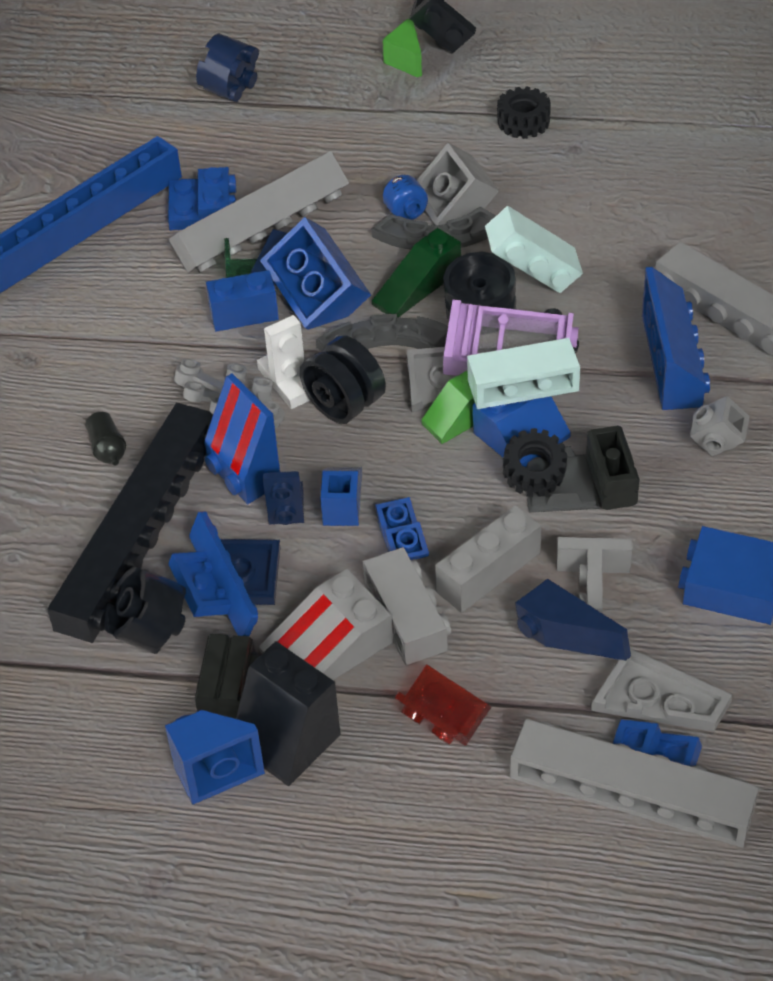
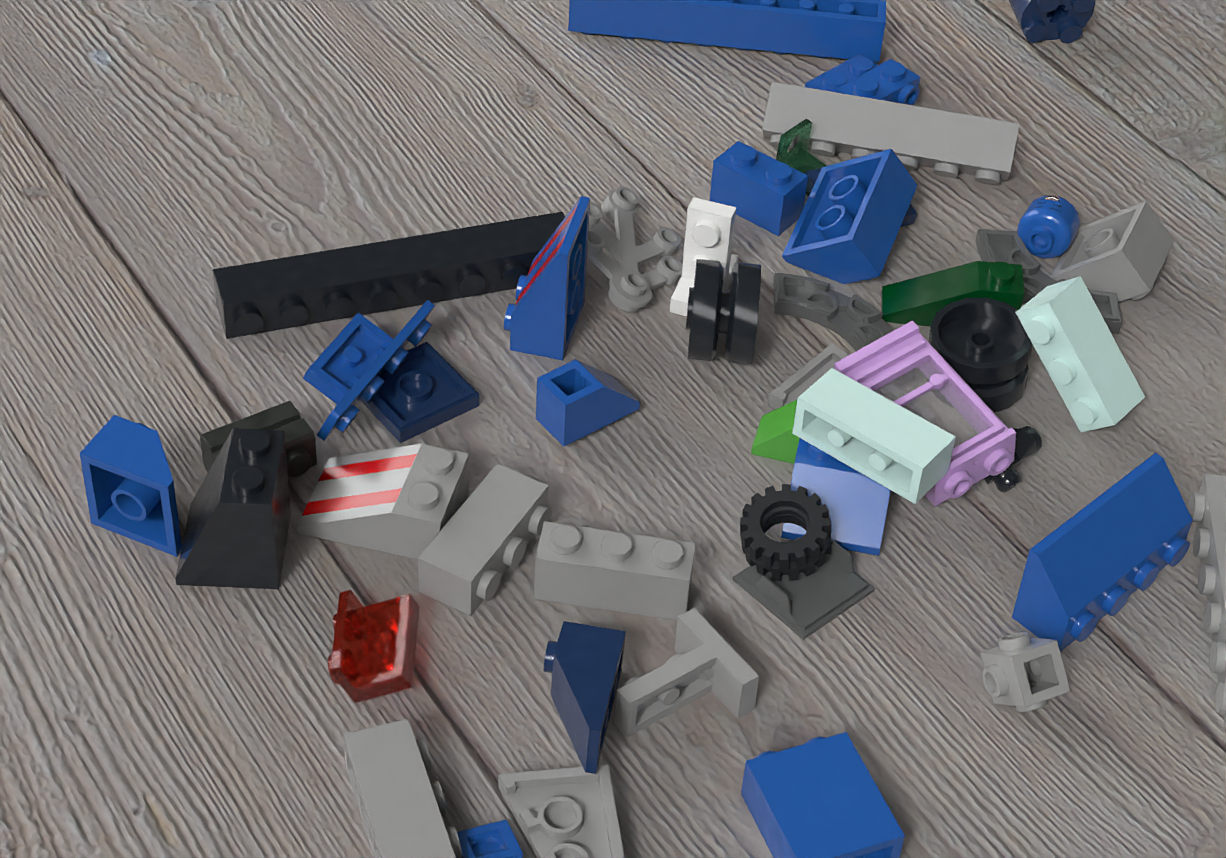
camera: 45 degrees right, 5 degrees down
(105, 438) = (474, 200): pearl dark grey piece -> none
(146, 610) = (273, 337): black brick -> none
(284, 497) = (523, 357): dark blue bracket -> none
(401, 528) = (592, 484): blue slope -> none
(612, 467) = (852, 605): pearl dark grey brick -> none

